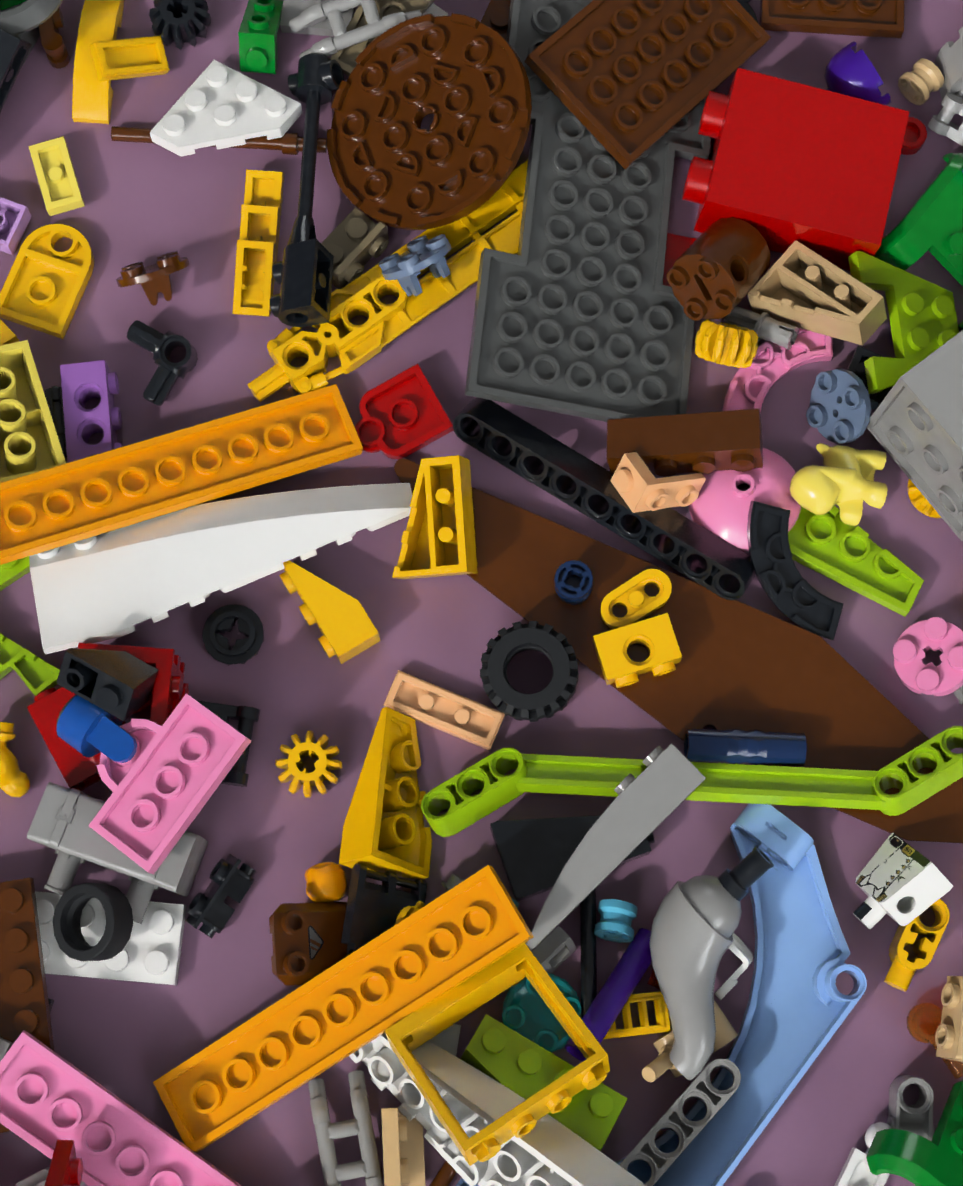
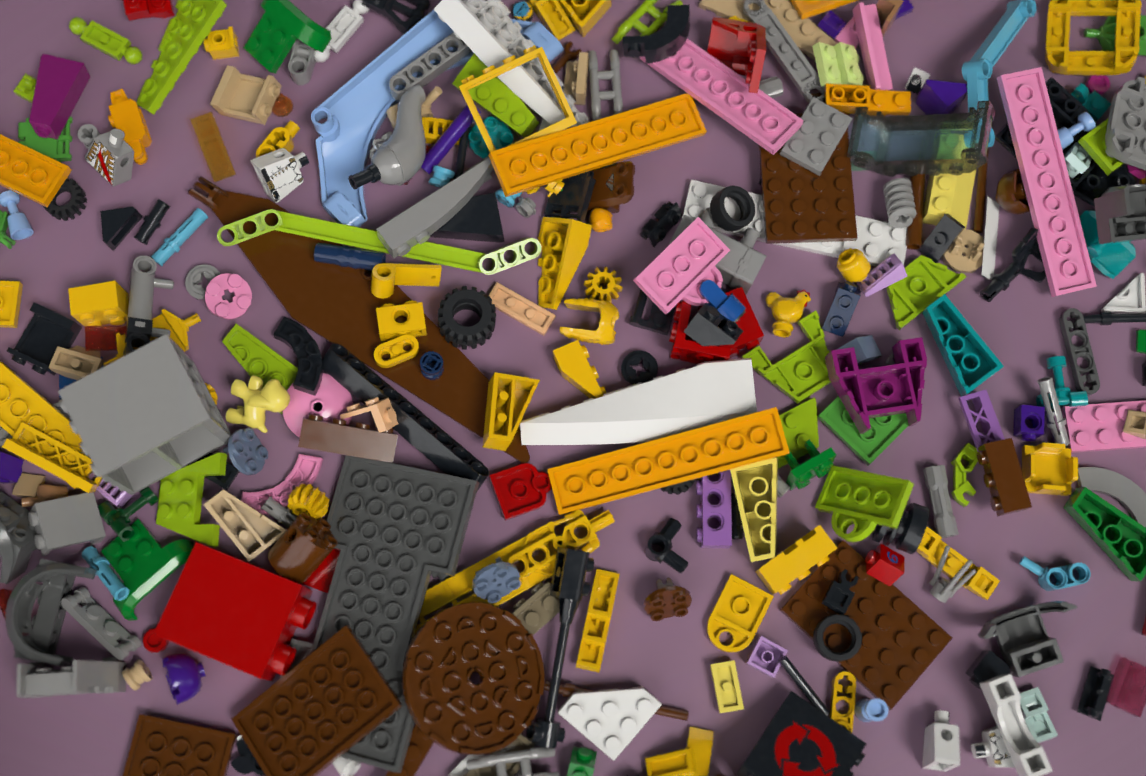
camera: 175 degrees left, 0 degrees up
(299, 669) = (608, 315): none -> yellow piece
(678, 716) = (390, 274): none -> yellow door

